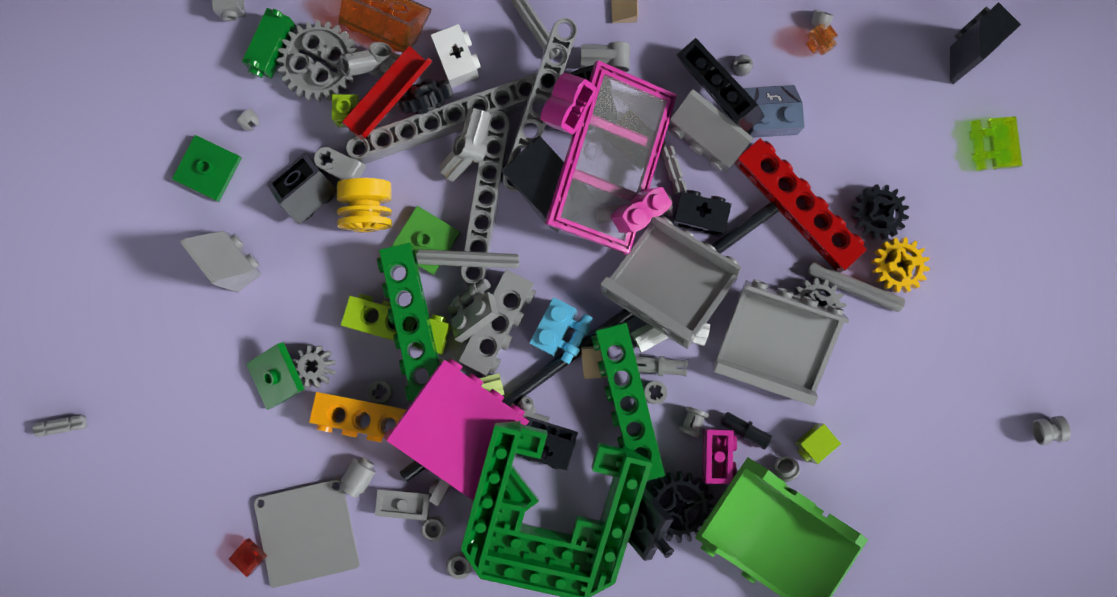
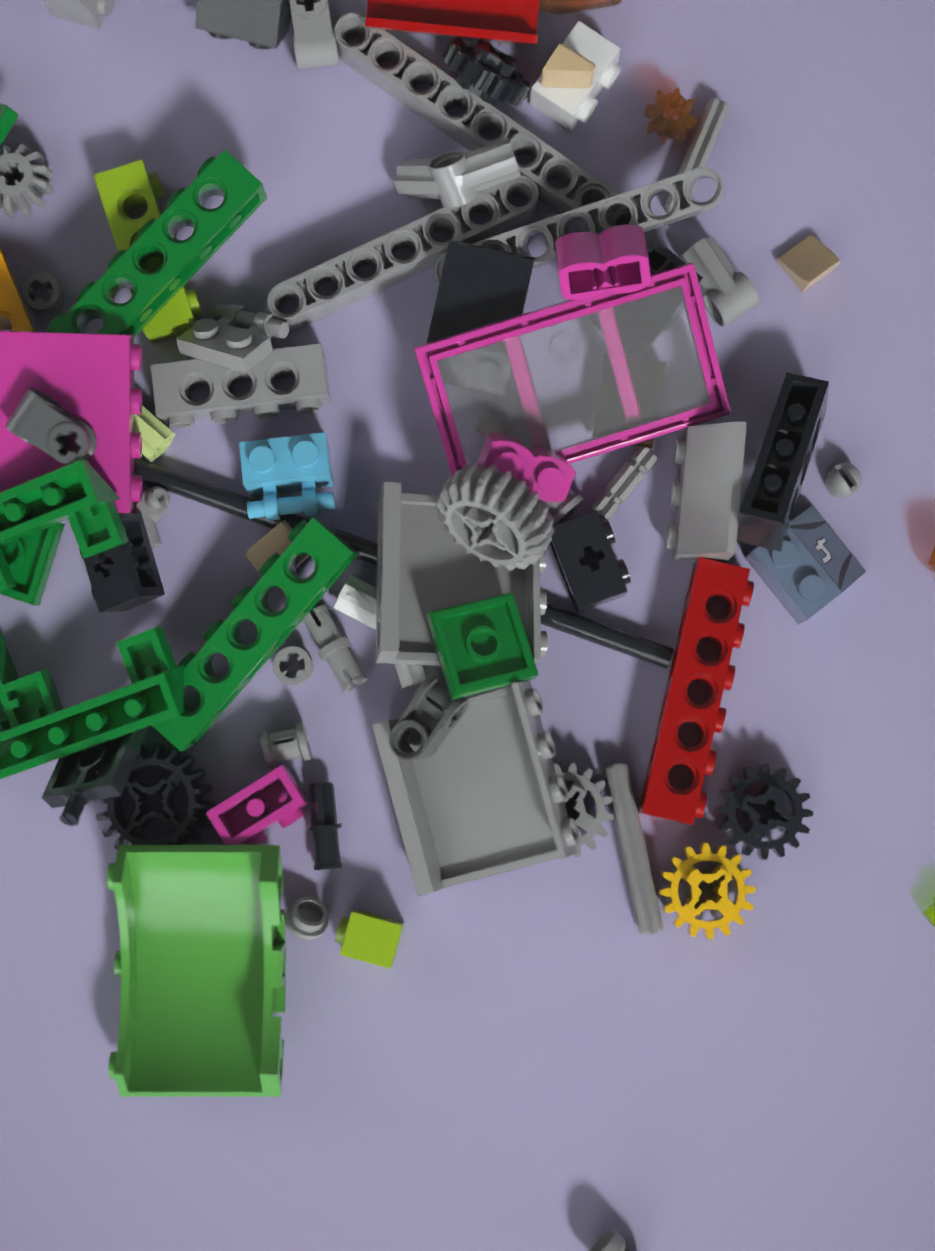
camera: 55 degrees right, 0 degrees up
(364, 202) = (279, 93): yellow wheel -> none
(427, 233) = (295, 215): bright green plate -> none
(455, 55) = (567, 70): none -> tan slope
(462, 431) = (46, 423): none -> dark grey piece
(470, 259) = (298, 280): light grey axle -> none
(507, 16) = (672, 105): none -> clear orange gear
(658, 240) = (495, 516): none -> light grey gear
(715, 291) = (482, 645): none -> green plate
(731, 339) = (432, 715): none -> dark grey piece

